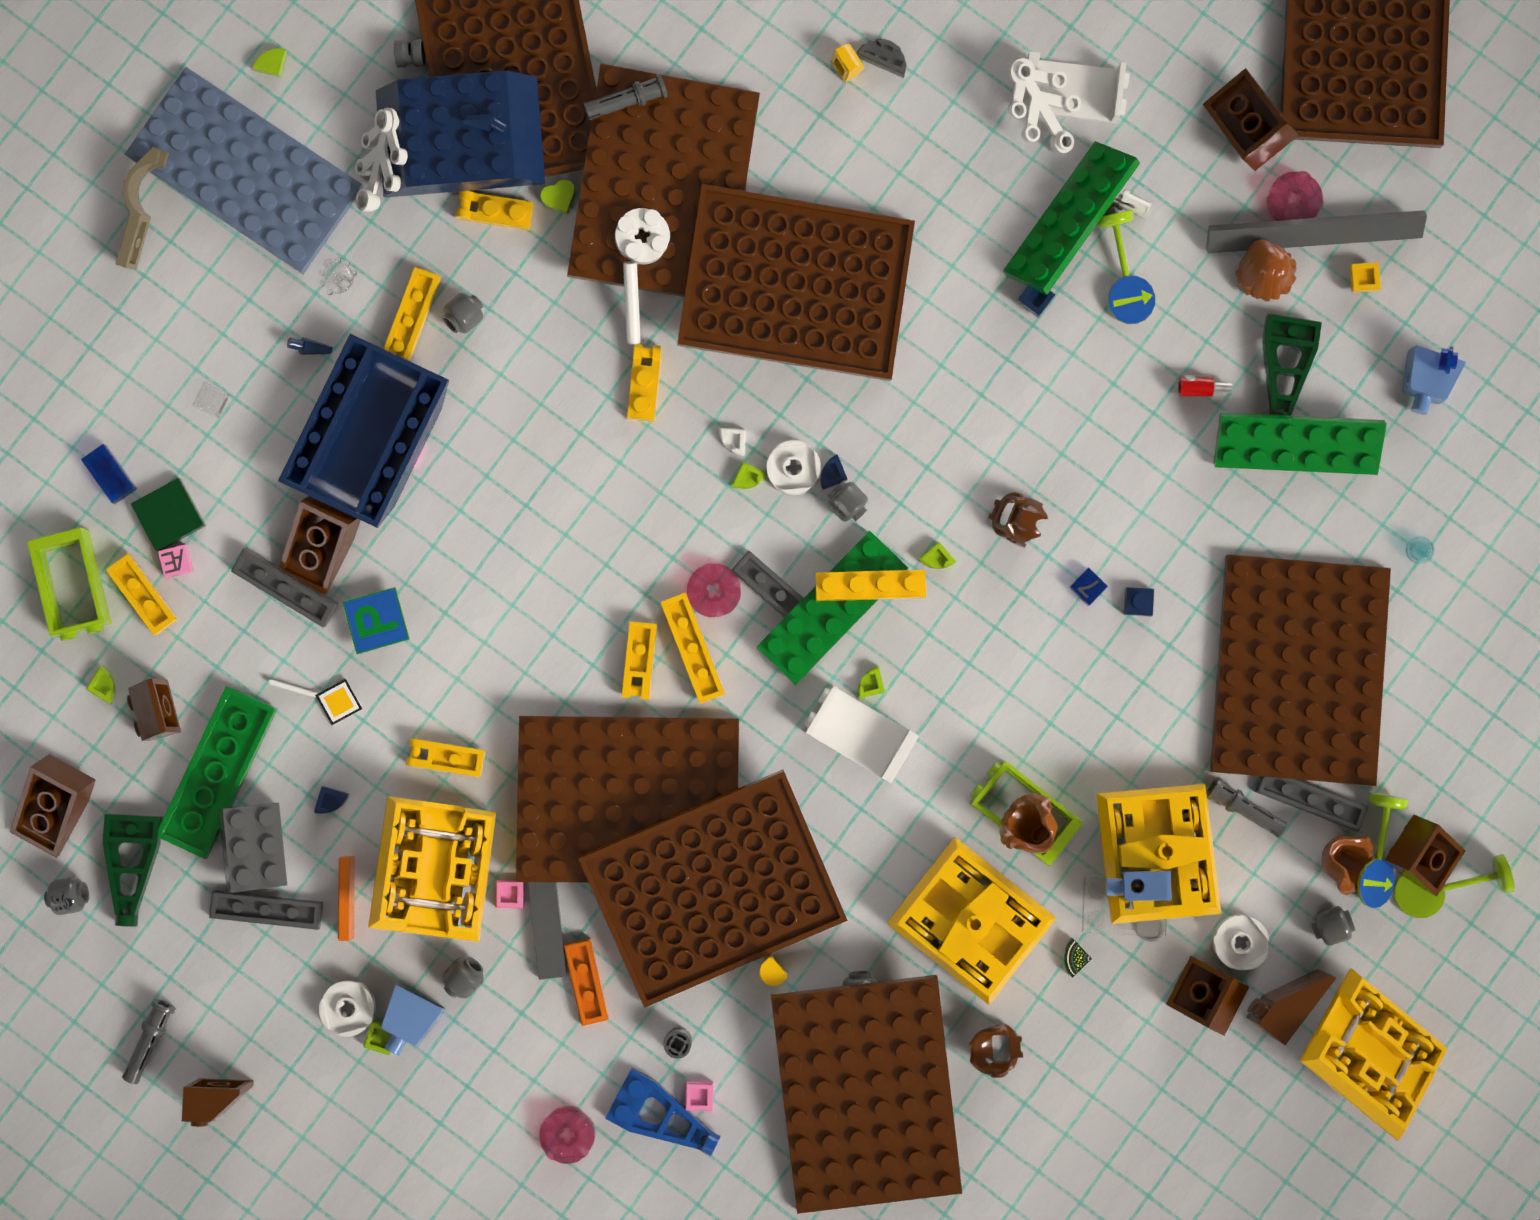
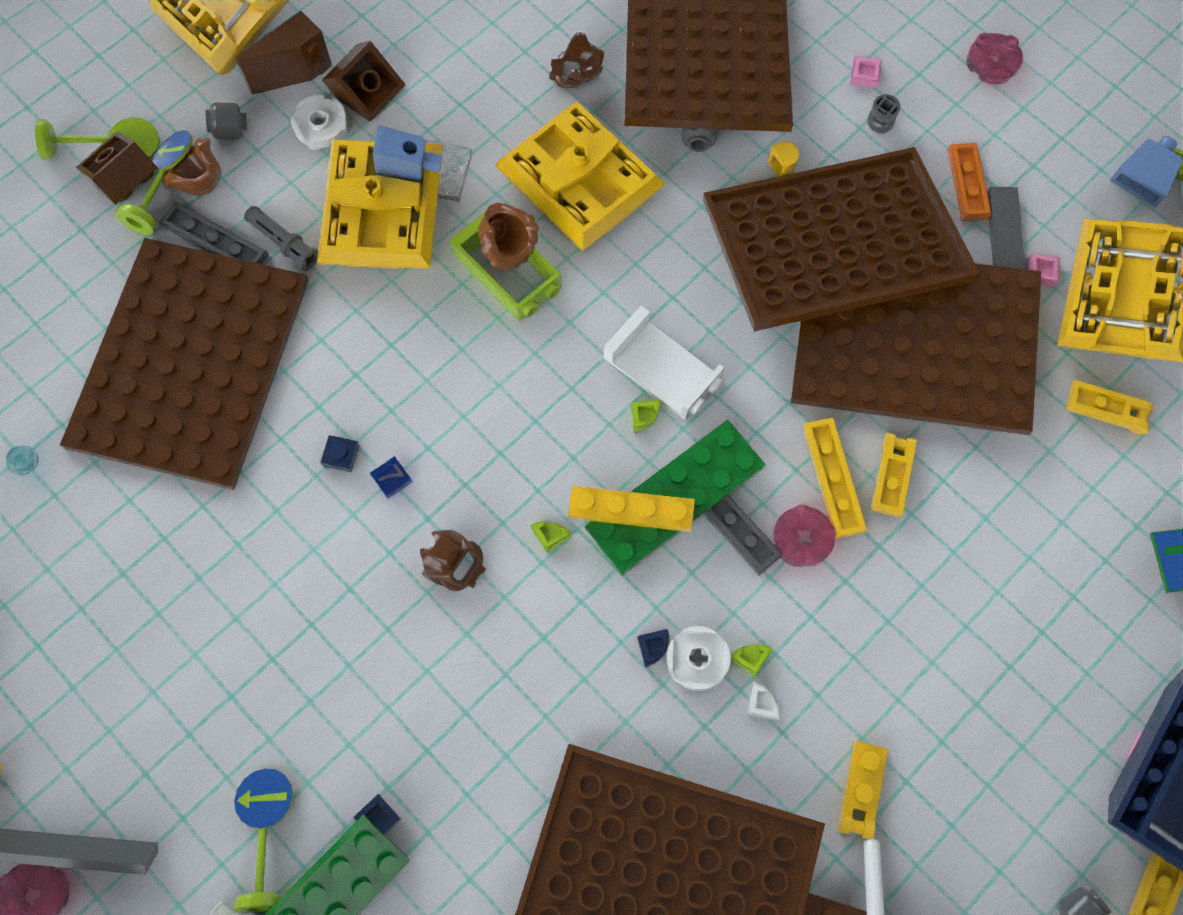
camera: 175 degrees left, 15 degrees down
(463, 977) = (1095, 197): dark grey head -> none
(632, 1097) = (929, 80): blue plate -> none
(847, 501) = (642, 607): dark grey head -> none
(1075, 957) = (483, 133): dark green tile -> none
(1201, 386) = (209, 678): red piece -> none
(1266, 271) = (94, 805): dark orange hair -> none
(1292, 333) = (89, 726): dark green plate -> none
(1299, 443) = (116, 592): green plate -> none

